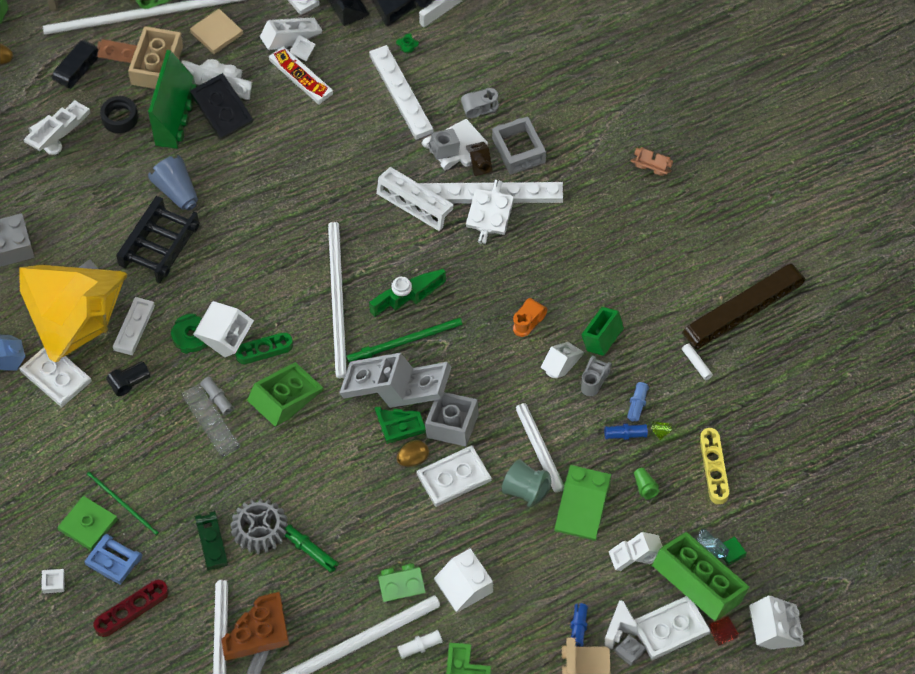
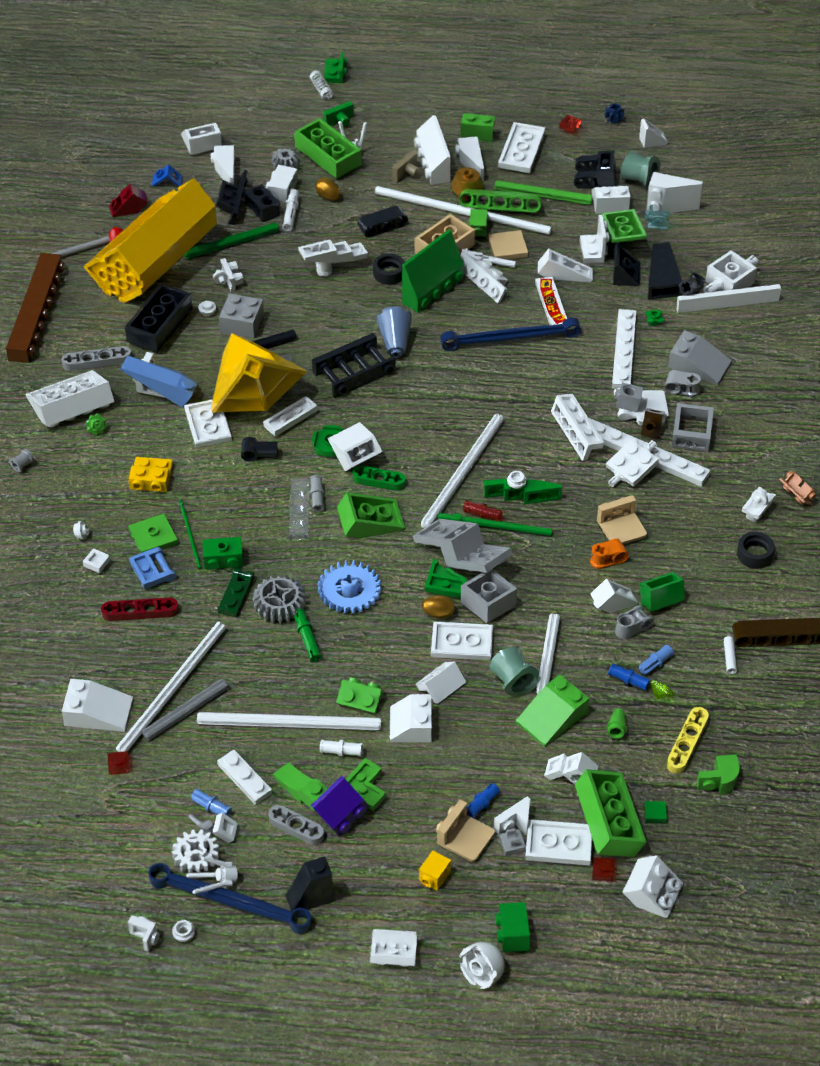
camera: 30 degrees right, 10 degrees down
(14, 557) = (81, 530): none -> white plate
(39, 460) = (150, 474): none -> yellow plate
(59, 249) = (276, 339): none -> black axle
(116, 50) = (416, 222): nougat hinge -> none
(171, 507) = (222, 553): none -> green brick
(173, 19) = (478, 221): none -> bright green brick
(199, 58) = (477, 256): none -> white pin
(221, 106) = (470, 295): black plate -> none
(258, 629) = (220, 670): dark orange plate -> none
(302, 48) = (566, 284): white plate -> none
(315, 478) = (349, 576): none -> light blue gear
(337, 95) = (510, 334): none -> dark blue piece
(384, 332) = (482, 510): none -> clear red pin
(463, 527) = (442, 681): none -> white panel
(478, 69) = (698, 356): none -> light grey slope
(518, 279) = (620, 521): none -> tan bracket
(628, 196) = (758, 504): none -> white hips
(653, 257) = (751, 560): none -> black tyre
(712, 544) = (639, 796): clear light blue bracket -> none
(769, 484) = (722, 777): none -> bright green brick

